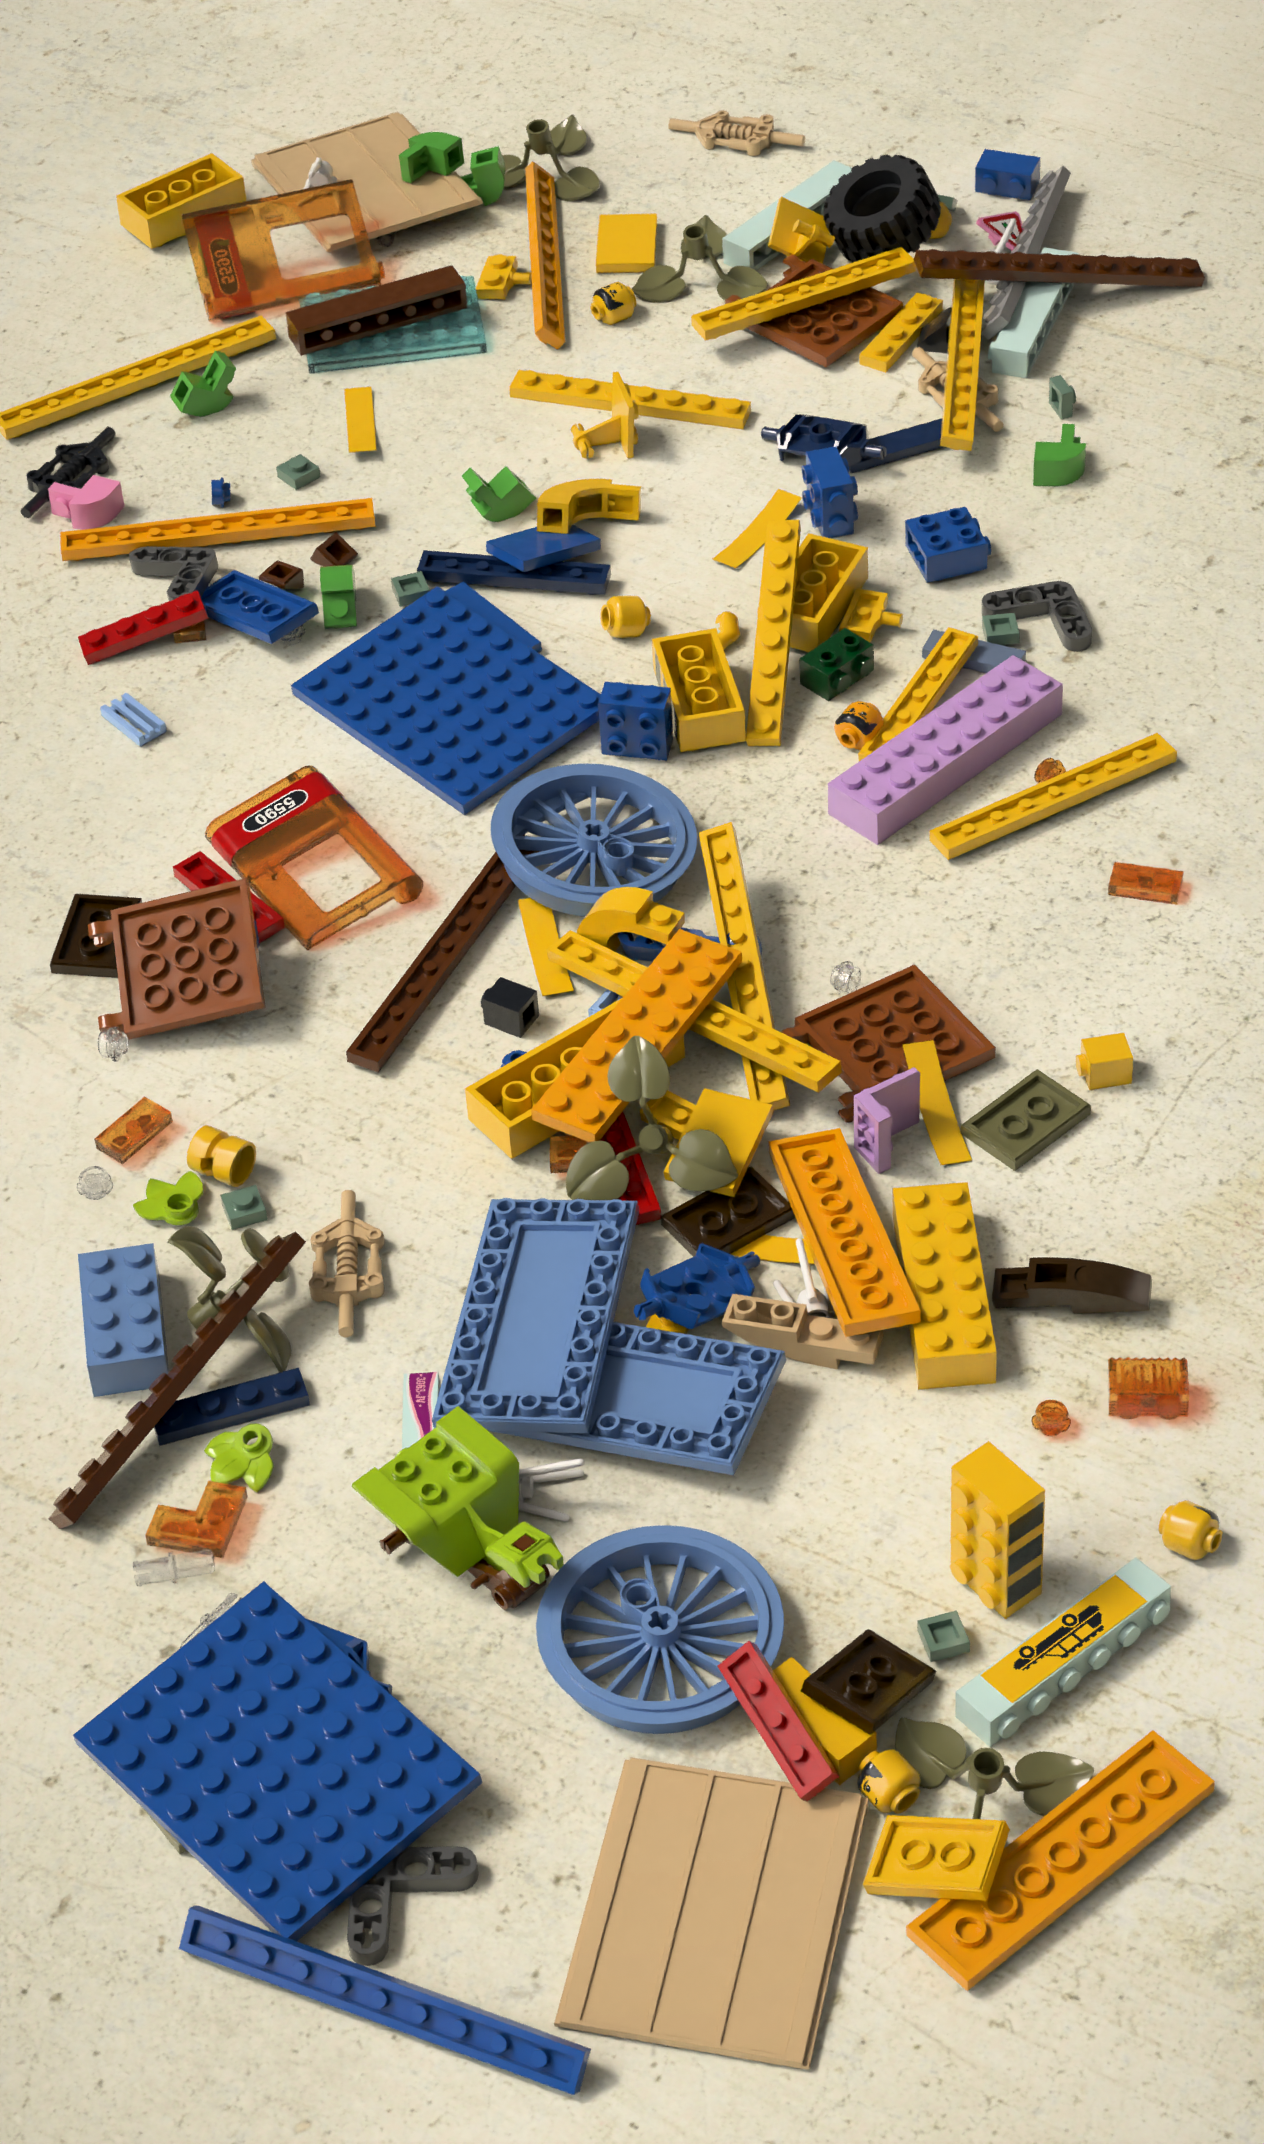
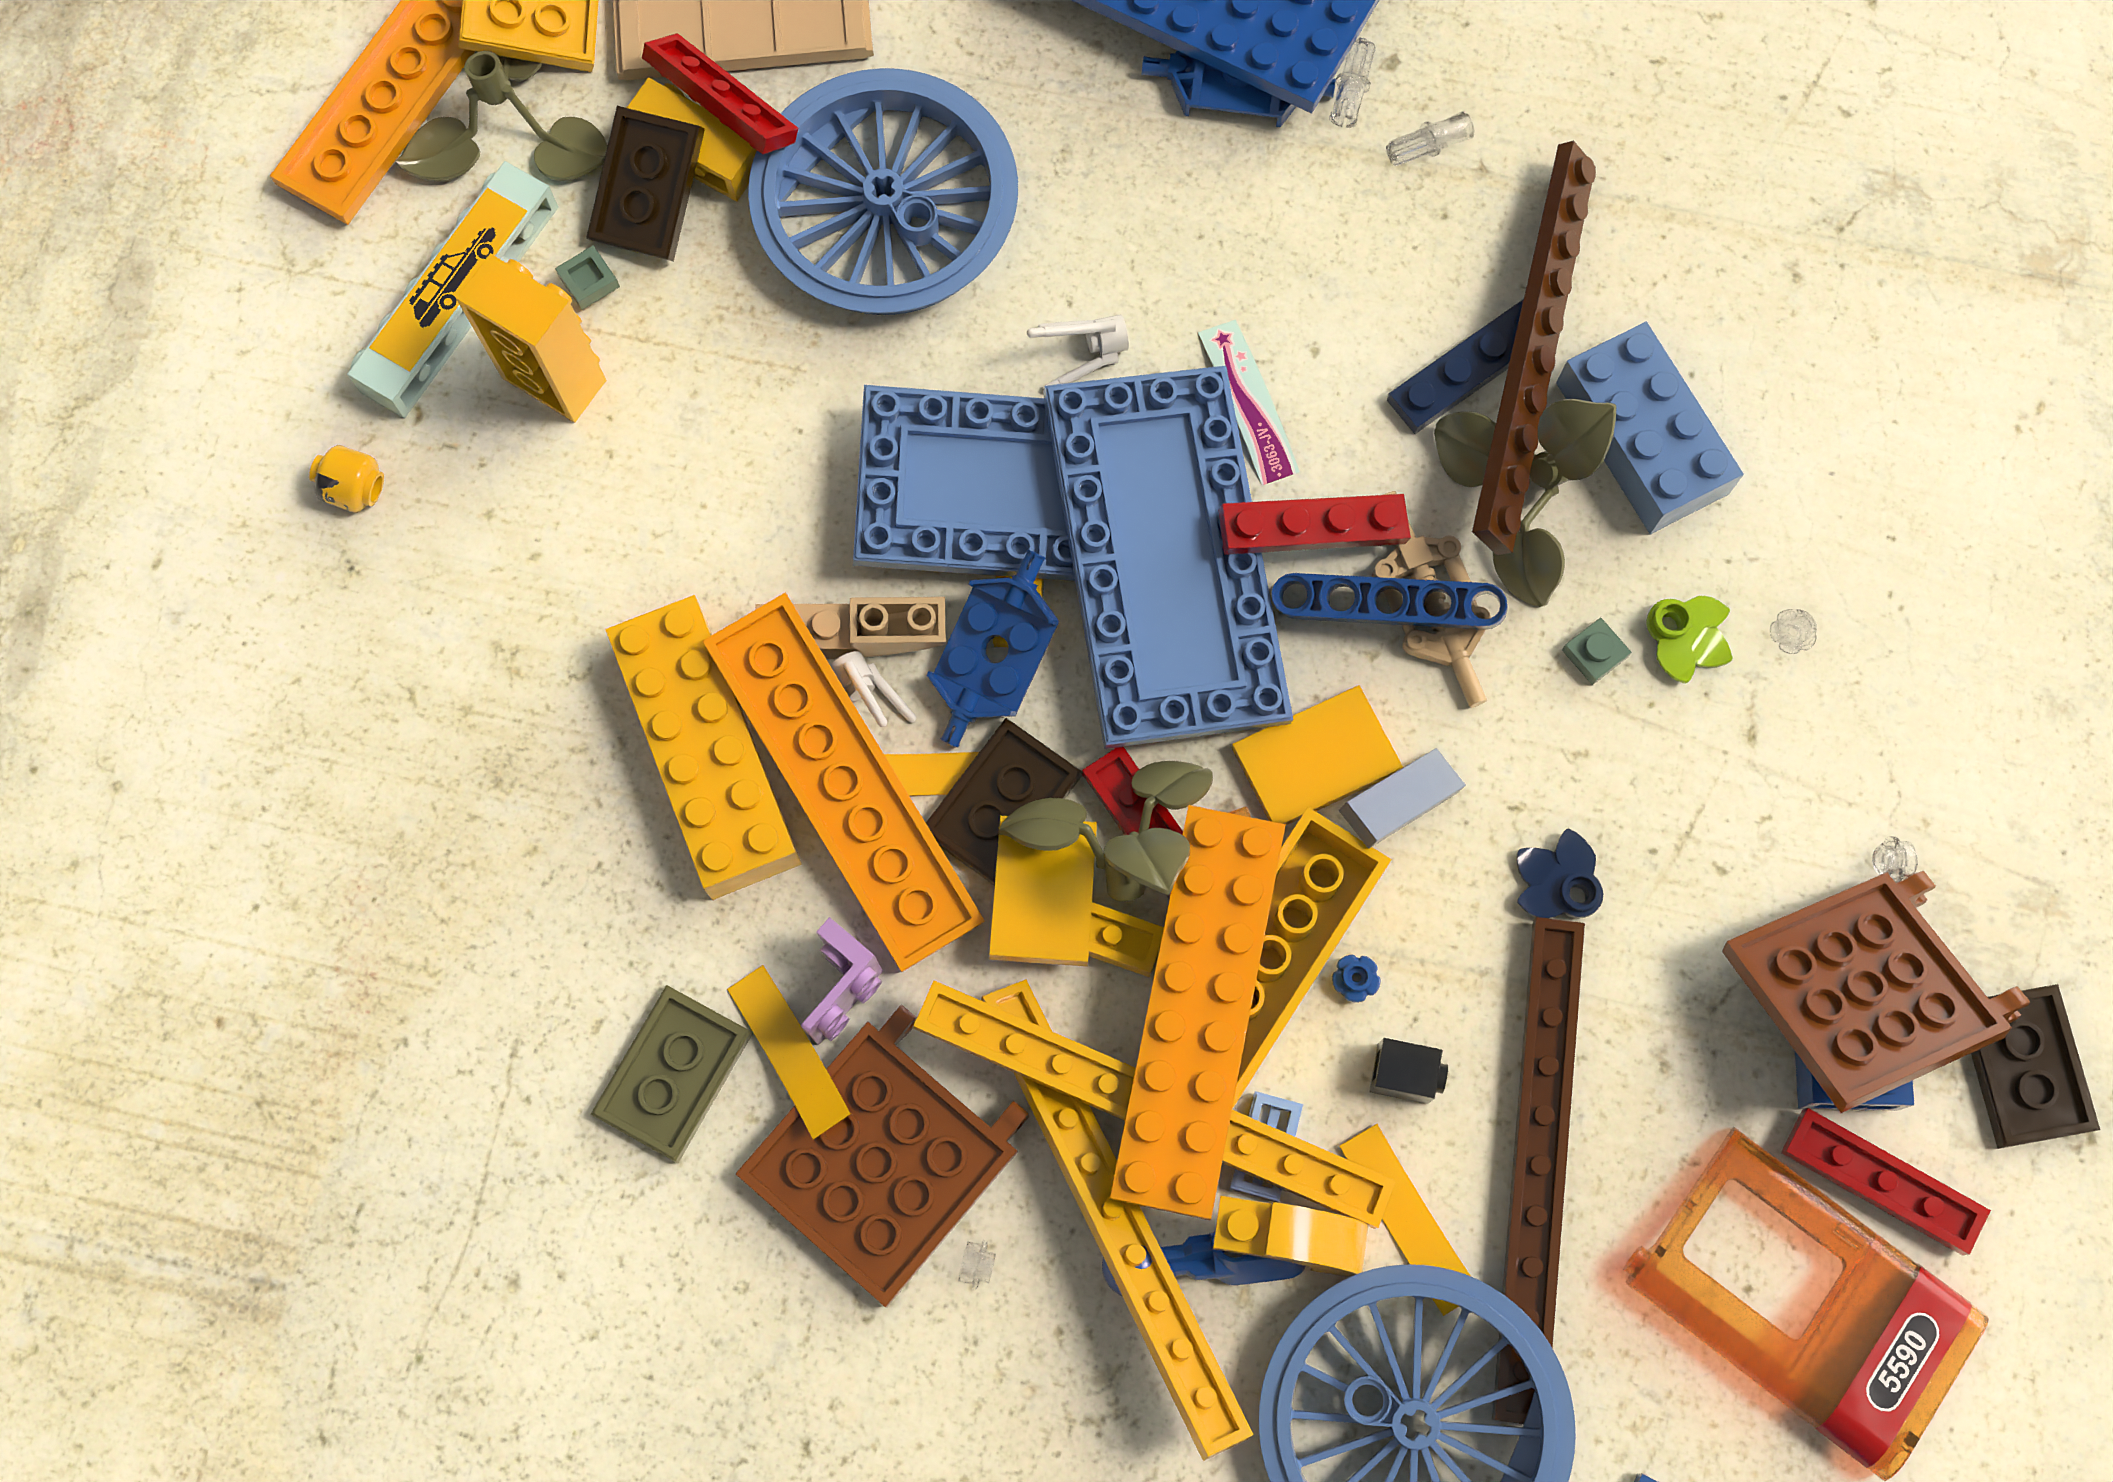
camera: 160 degrees right, 30 degrees up
(133, 1130) = (1791, 725): clear orange plate -> none
(201, 1529) = (1419, 194): clear orange plate -> none
(221, 1156) = (1666, 702): yellow wheel -> none
(238, 1460) = (1425, 298): lime plate -> none
(347, 1087) = (1553, 876): none -> dark blue plate
(384, 1246) = (1369, 588): none -> blue beam
(416, 1298) = (1314, 524): none -> red plate
(436, 1133) = (1401, 798): none -> tile
(460, 1506) = (1162, 250): lime piece -> none
(463, 1190) = (1317, 757): none -> yellow tile
(888, 1781) = (596, 91): yellow head -> none
(1051, 1418) = (534, 585): clear orange plate -> none
(1080, 1283) = (545, 777): dark brown slope -> none
(1105, 1061) = (585, 1193): yellow brick -> none
(1148, 1387) = (428, 660): clear orange brick -> none

